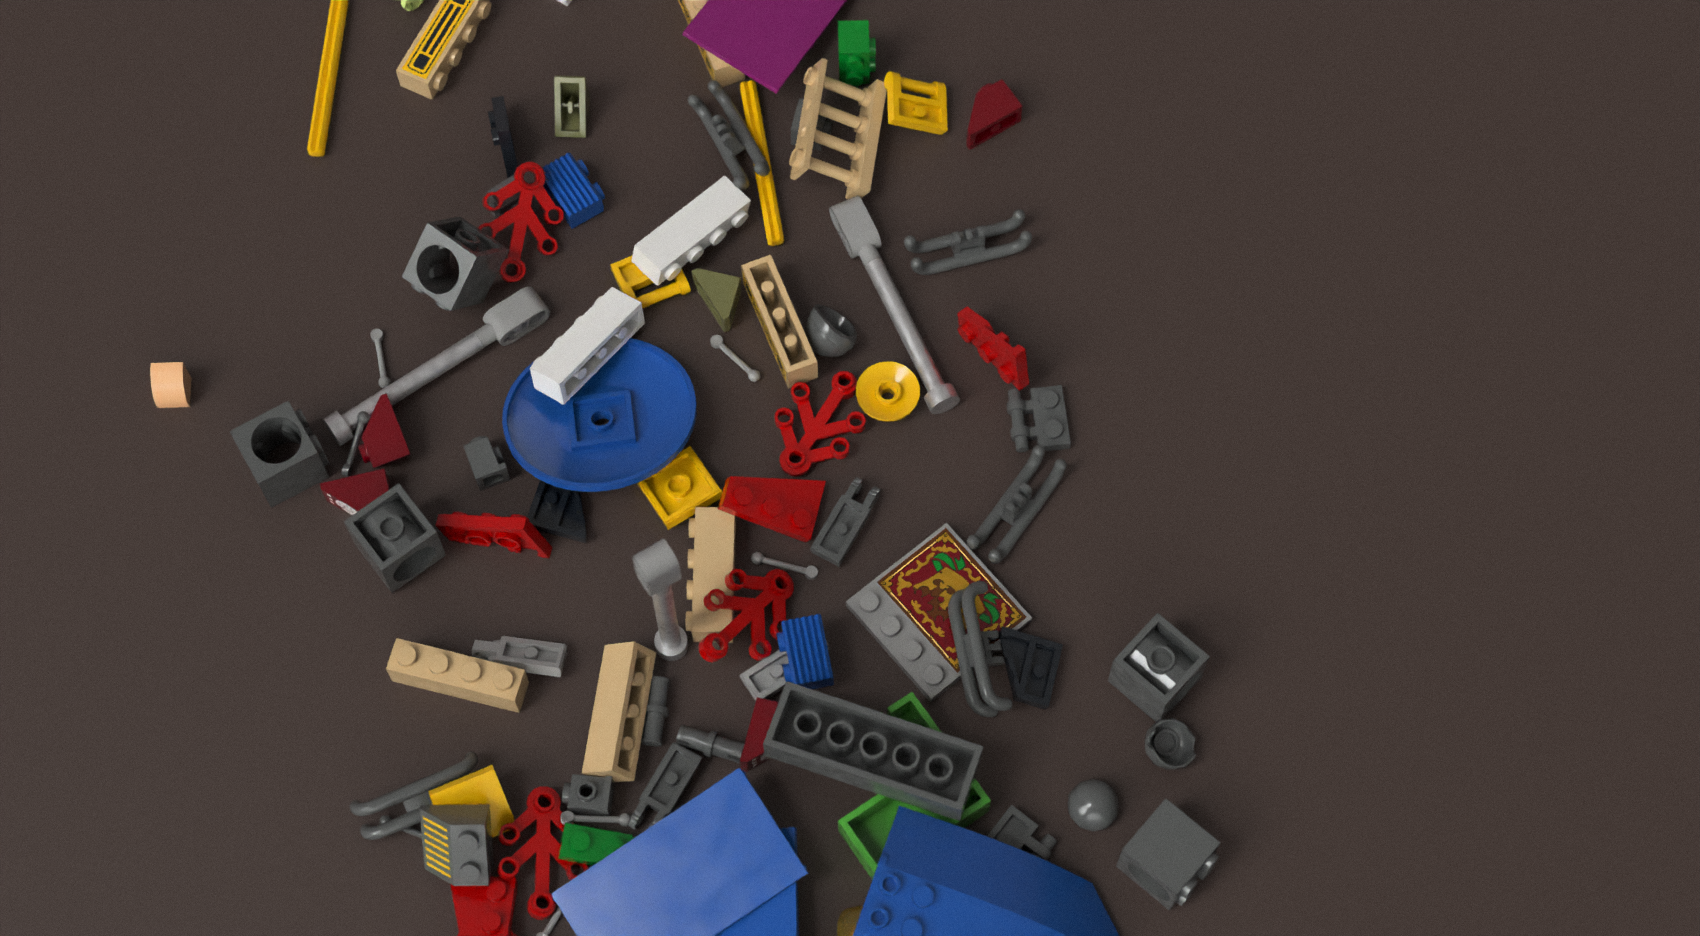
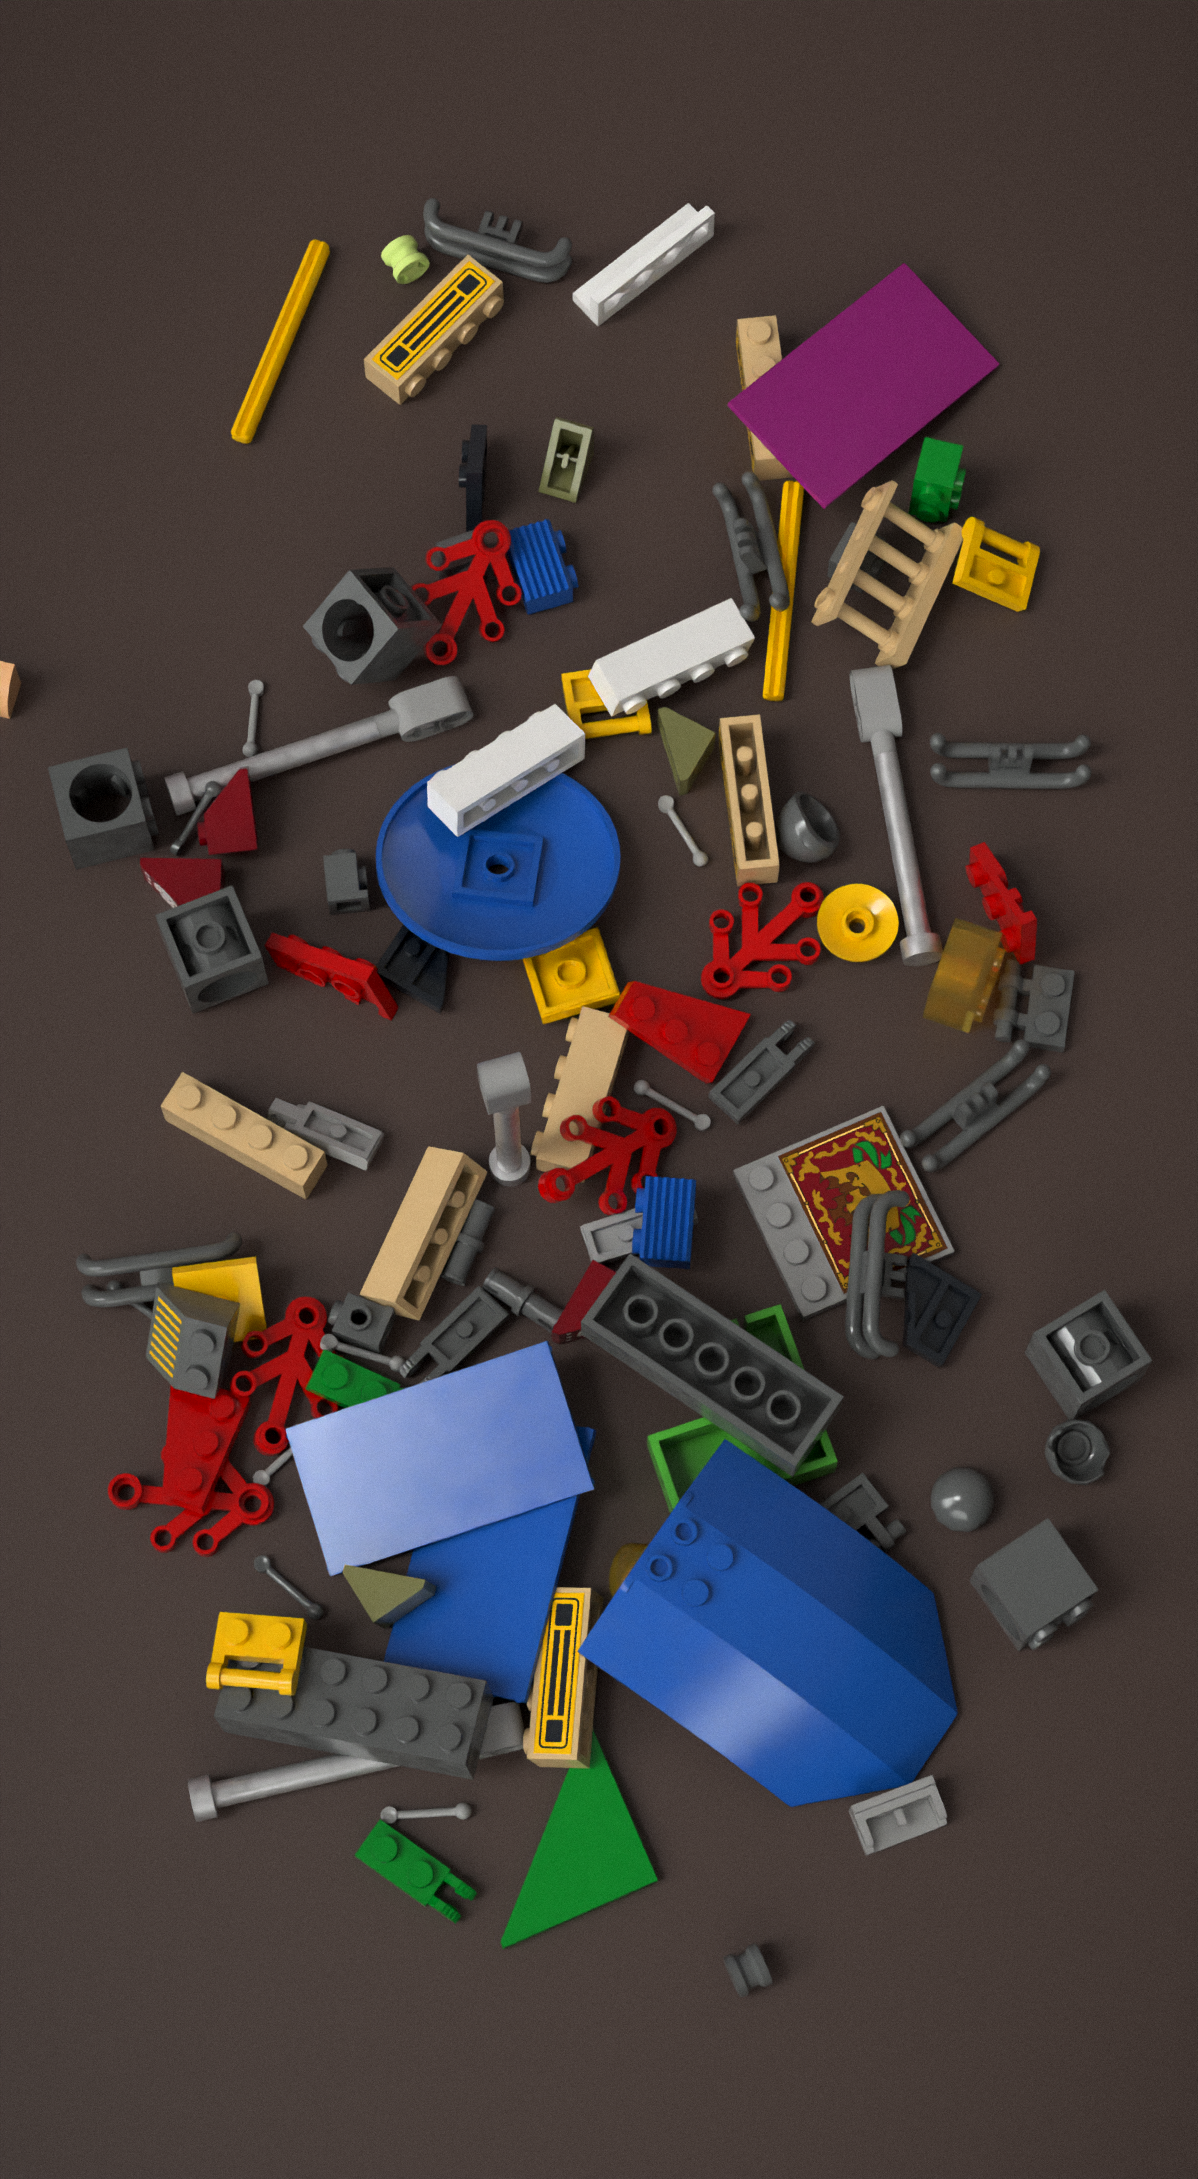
camera: 15 degrees right, 5 degrees up
(981, 409) = (961, 980): none -> clear yellow brick
(992, 113) = (1088, 601): dark red slope -> none

